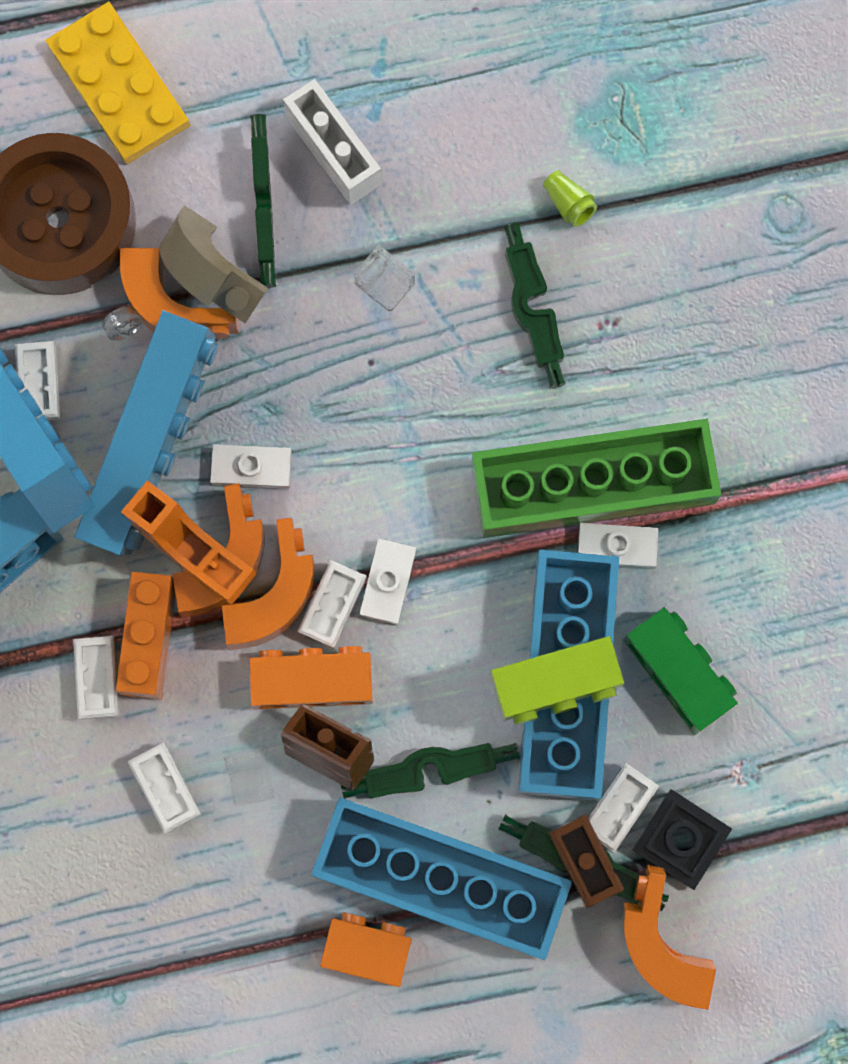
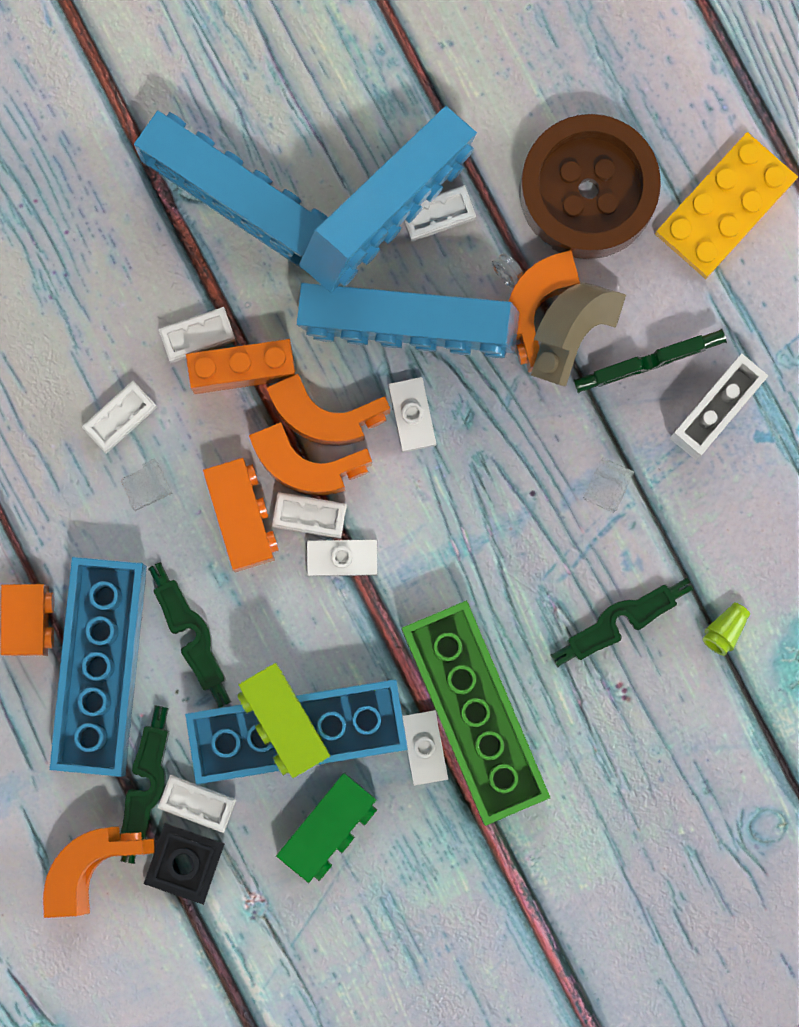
camera: 75 degrees right, 5 degrees up
(186, 544) = (321, 379): orange arch -> none
(327, 747) = (184, 543): reddish brown brick -> none
(585, 861) = (140, 784): reddish brown brick -> none

